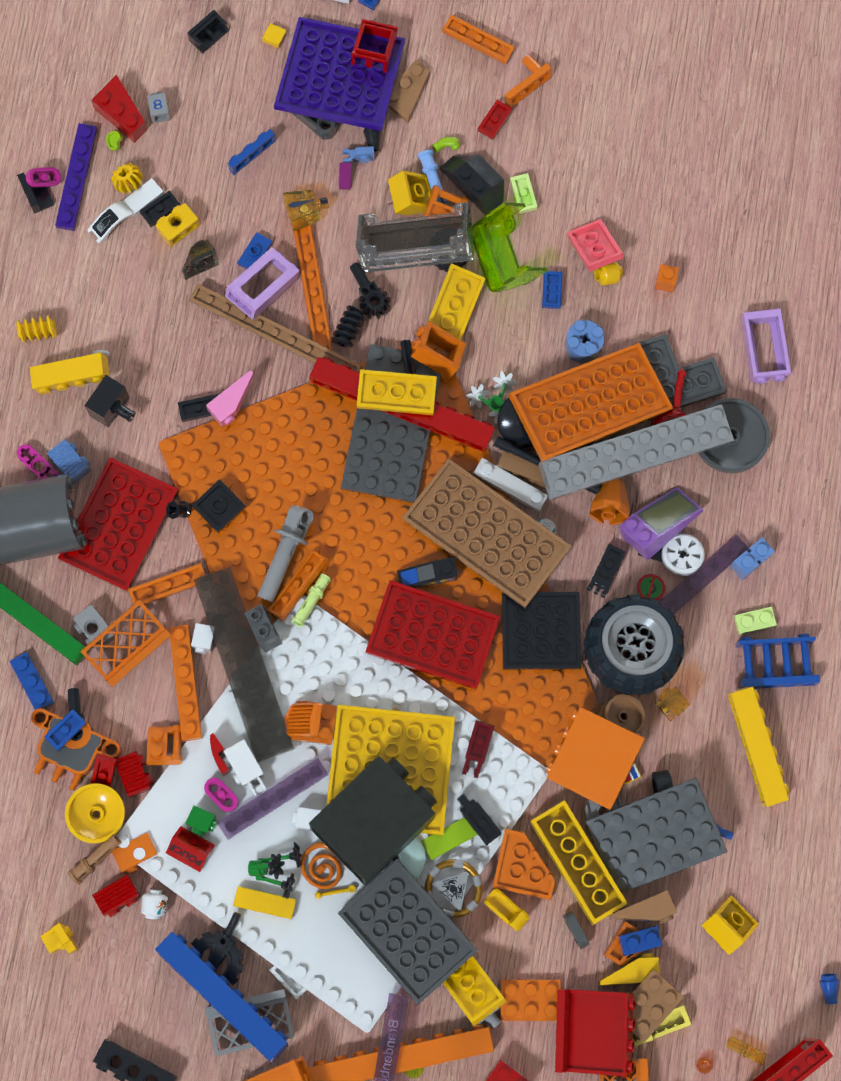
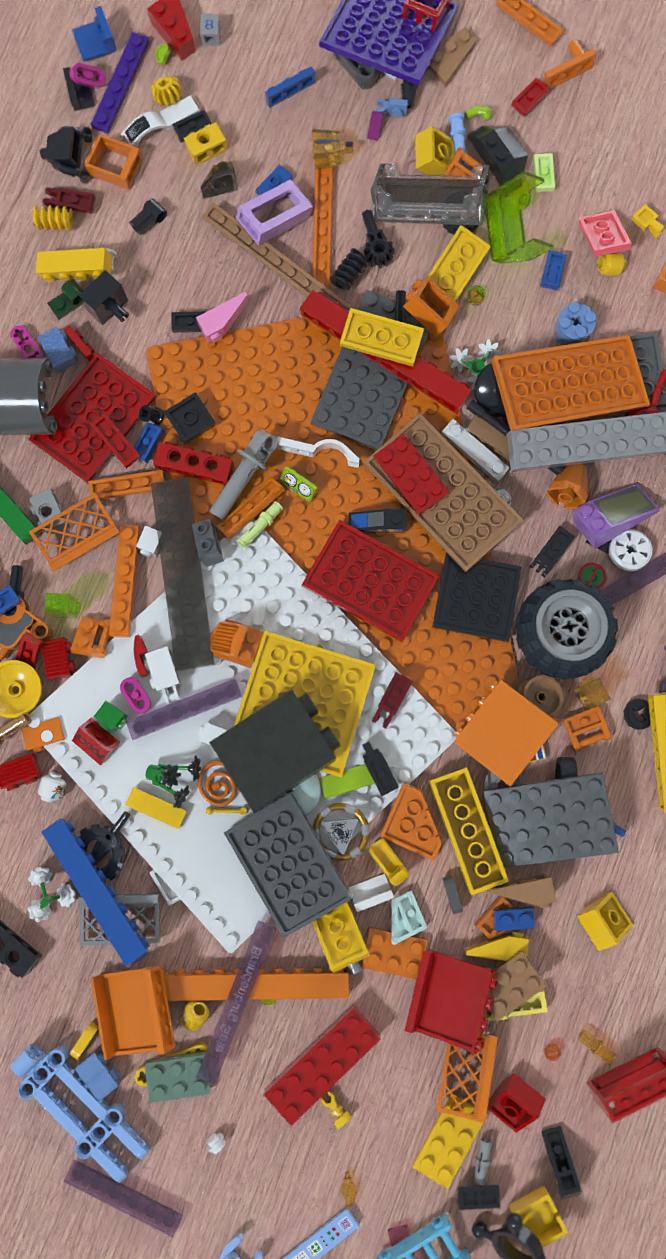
camera: 20 degrees right, 5 degrees up
(35, 257) = (65, 149): none -> black torso
(41, 136) = (95, 37): none -> blue bracket
(50, 305) = (71, 199): none -> dark red hinge
(69, 409) = (68, 300): none -> dark green plate
(85, 446) = (76, 337): none -> red plate
(105, 264) = (130, 167): none -> orange window
(129, 719) = (62, 605): none -> clear neon green brick
(136, 305) = (151, 214): none -> black piece
(148, 543) = (115, 440): none -> red plate
(180, 538) = (148, 441): none -> blue plate
(189, 1010) = (41, 908): none -> white plant
(261, 558) = (167, 450): none -> red brick
(341, 552) = (298, 484): none -> slope
(347, 515) = (311, 450): none -> white piece
(452, 521) = (411, 474): none -> red plate
(480, 328) = (475, 295): none -> clear neon green tile
(495, 944) = (371, 892): none -> white panel
(534, 961) = (405, 917): none -> light aqua wing
(634, 221) = (646, 218): none -> yellow plate
(671, 734) = (585, 722): none -> orange plate
(713, 716) = (629, 714): none -> black gear

